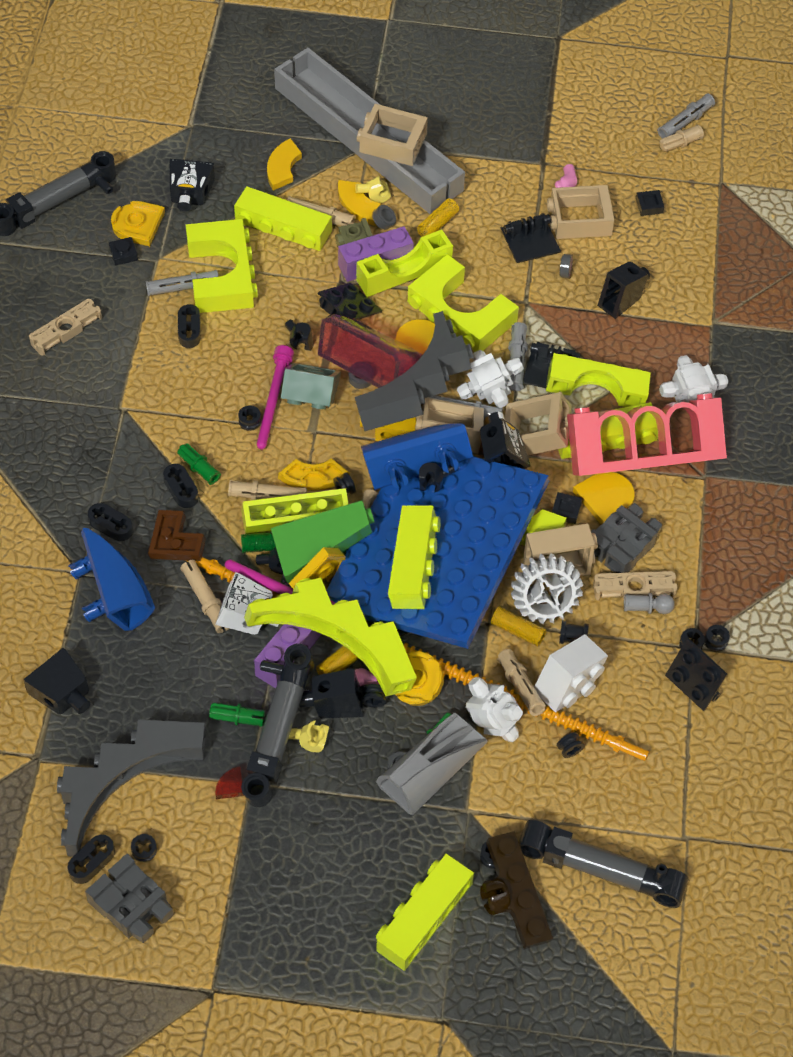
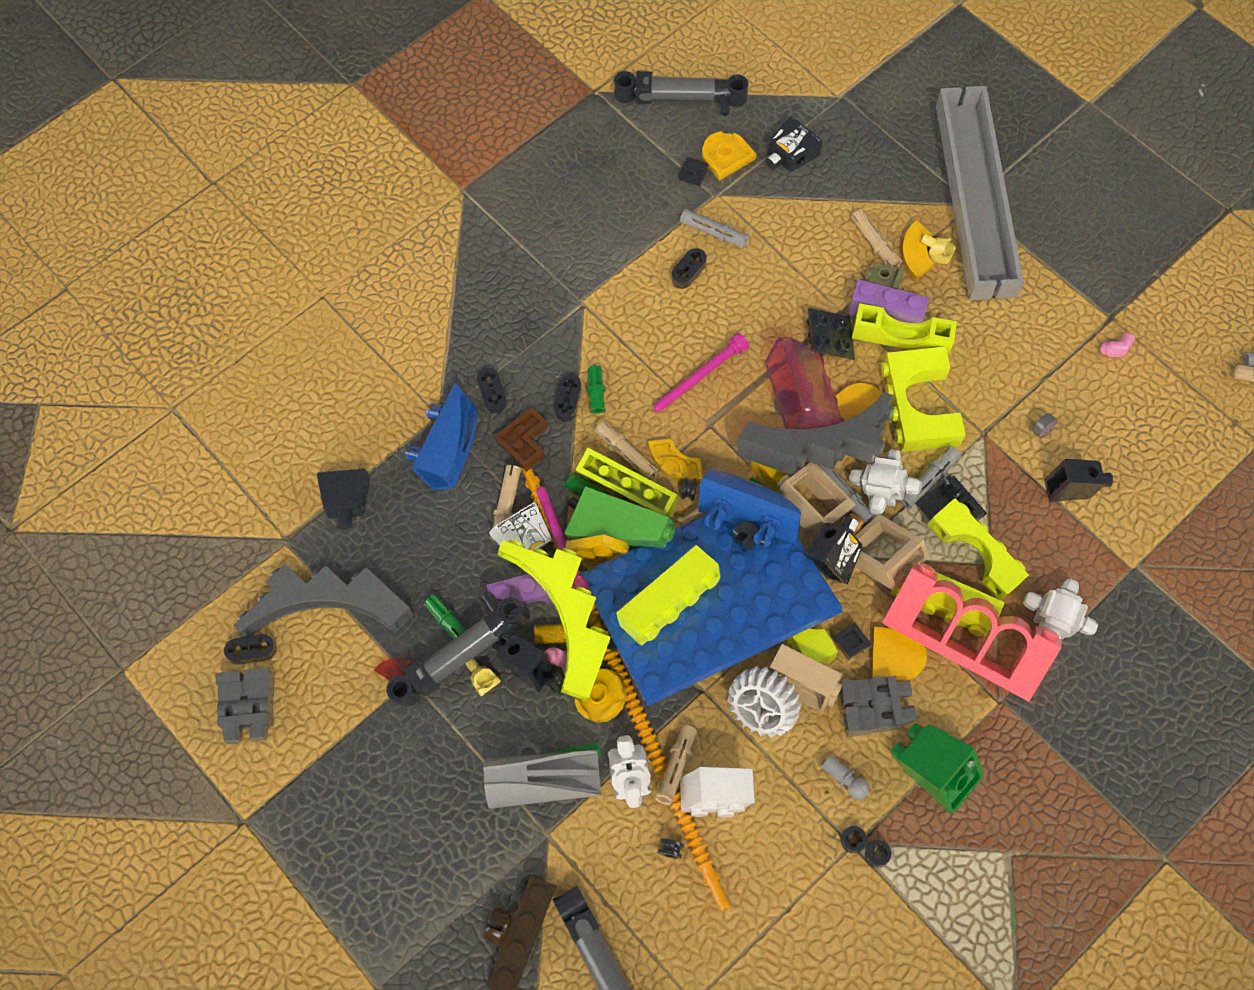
camera: 45 degrees right, 10 degrees up
(51, 334) = (612, 206): tan piece -> none
(143, 839) = (285, 665): black bush -> none
(226, 240) = (752, 260): neon yellow arch -> none
(249, 425) = (667, 370): black bush -> none
(280, 164) = (882, 175): yellow tile -> none
(283, 218) = (840, 225): neon yellow brick -> none
(300, 334) = (766, 334): black piece -> none
(310, 385) = (737, 383): sand green slope -> none
(384, 217) = (925, 277): dark grey tile -> none
(387, 148) = (995, 230): tan window -> none
(424, 912) = (436, 892): neon yellow brick -> none
(438, 222) = (965, 305): yellow piece -> none
(518, 625) = (723, 719): yellow piece -> none
(530, 238) = (1036, 379): black hinge -> none
(571, 632) = (759, 755): black bush -> none
(577, 197) = (1112, 369): tan window -> none
(616, 584) = (866, 763): tan piece -> none
(650, 202) = (1174, 417): black plate -> none
(696, 675) = (823, 875): black hinge -> none
(704, 543) = (939, 765): none -> green hips

